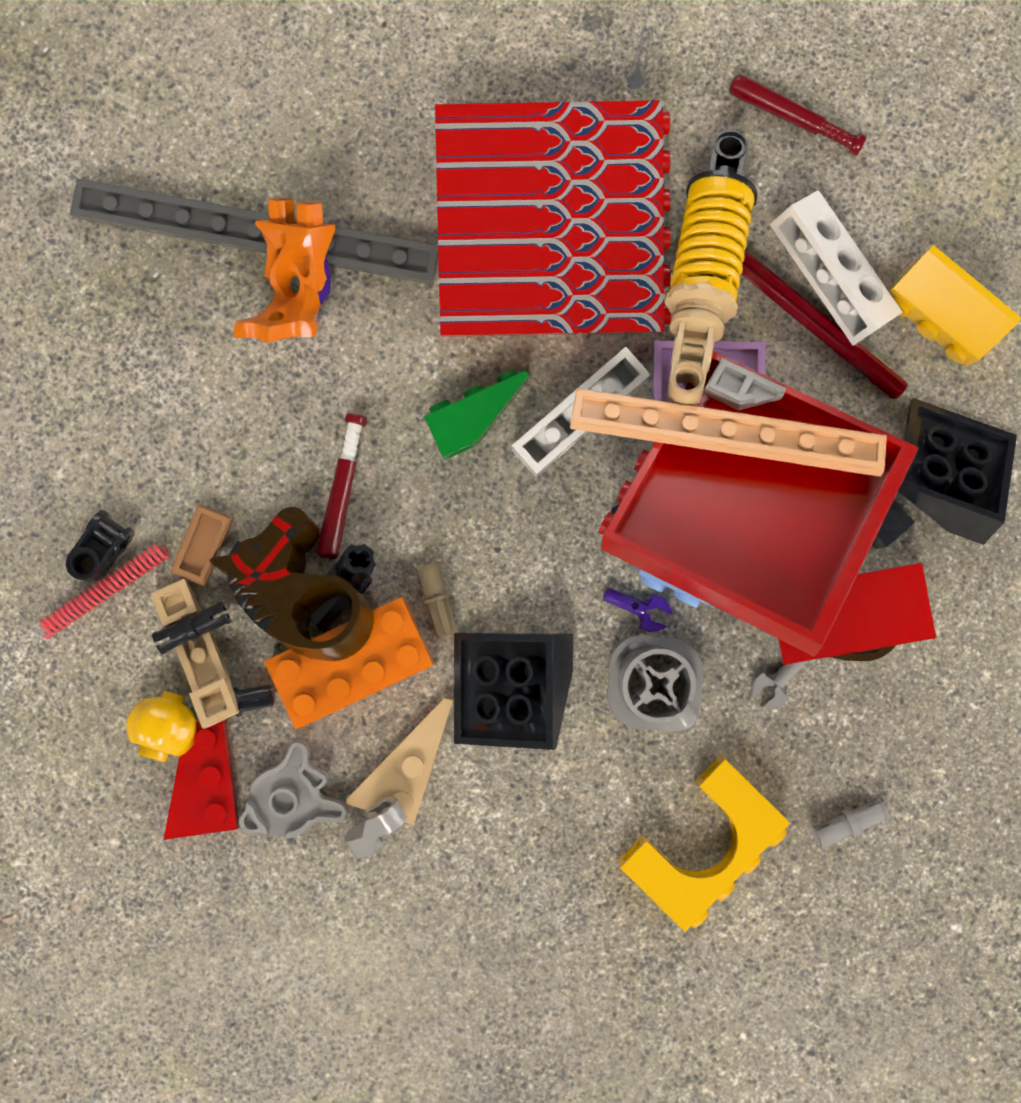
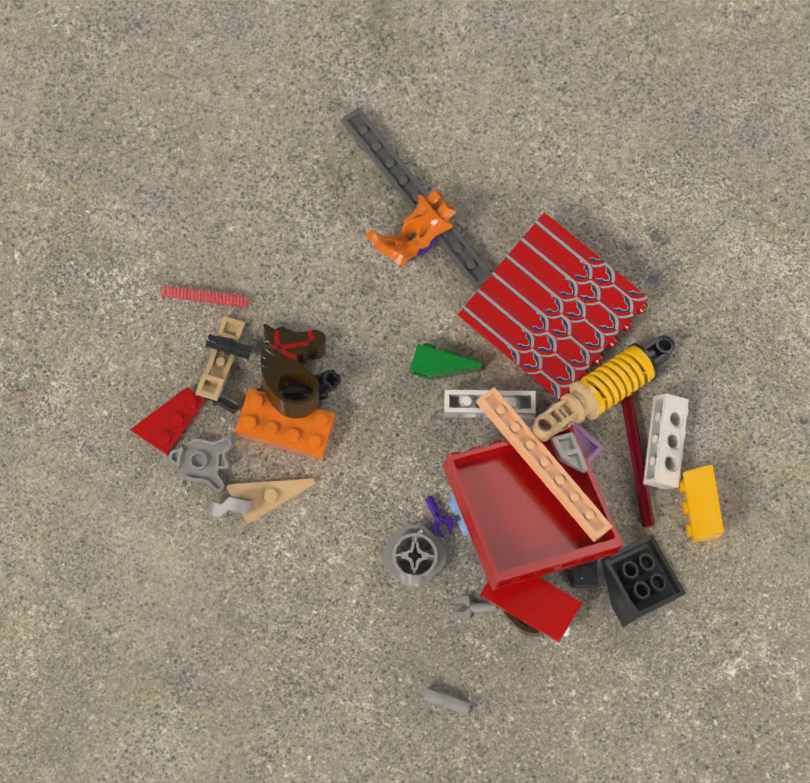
camera: 45 degrees right, 10 degrees down
(100, 546) = (221, 275): black piece -> none
(161, 726) = (175, 379): yellow plant -> none
(201, 543) = (267, 313): medium nougat tile -> none
(337, 506) = (350, 345): dark red piece -> none
(437, 599) = (349, 431): dark tan axle -> none
(511, 688) = (347, 499): black slope -> none
(687, 893) = (343, 665): yellow arch -> none
(790, 111) = (707, 346): dark red piece -> none

